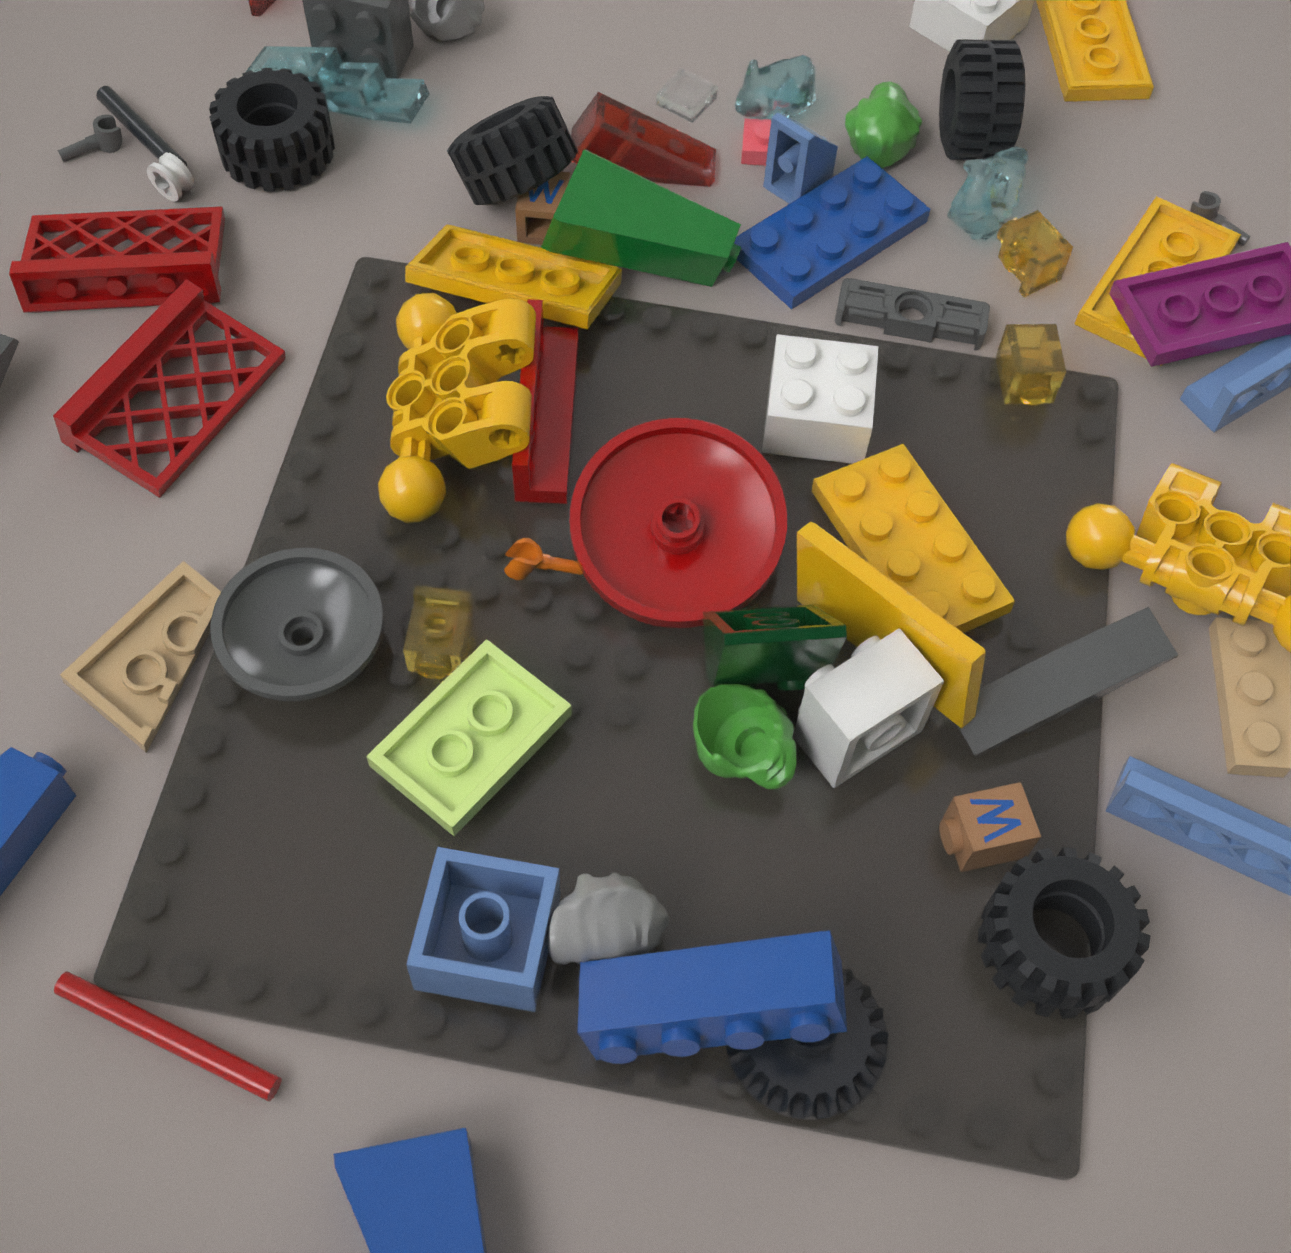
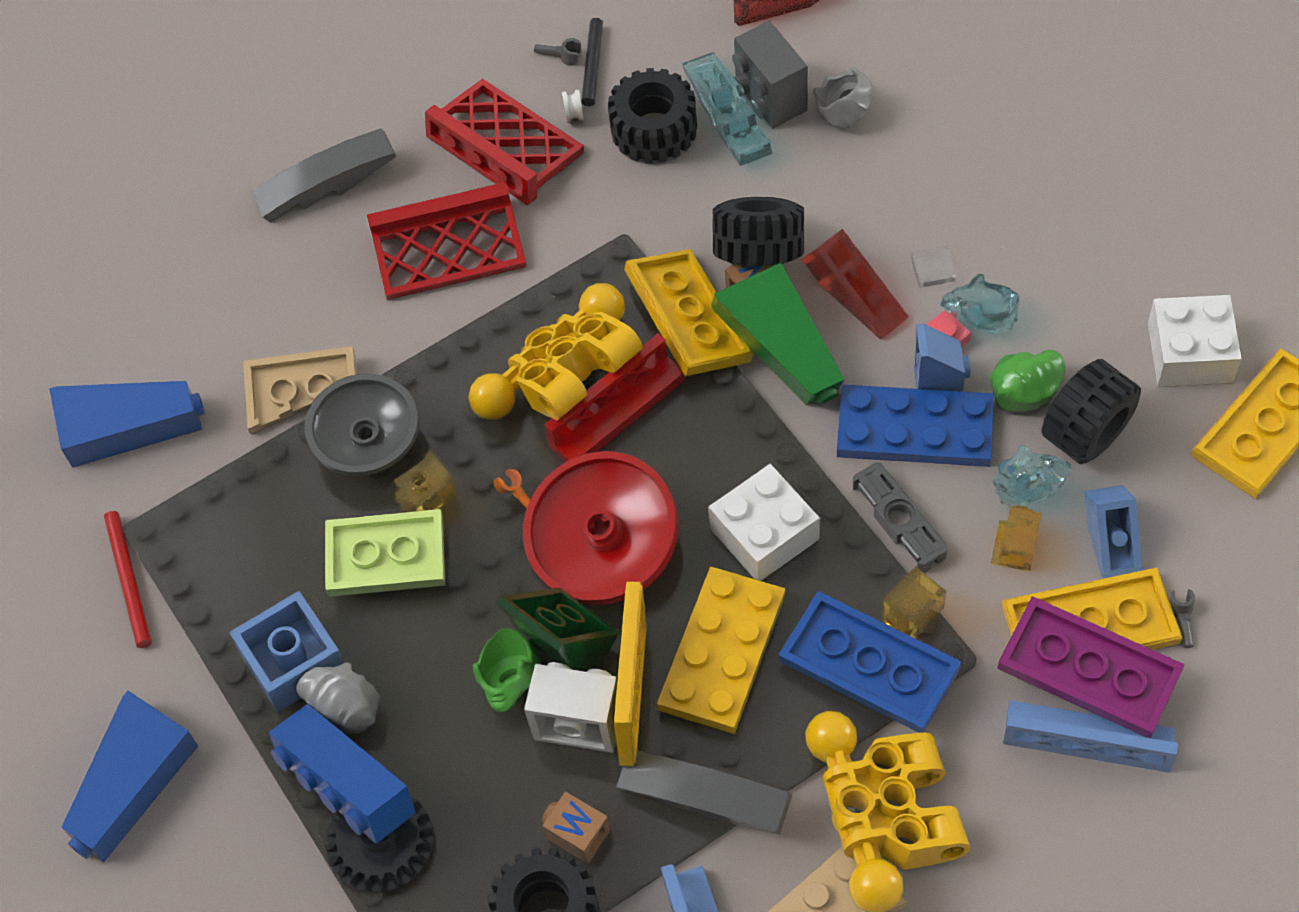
camera: 55 degrees right, 0 degrees up
(1051, 445) = (870, 662): none -> blue plate
(1094, 188) = (1114, 530): none -> medium blue slope

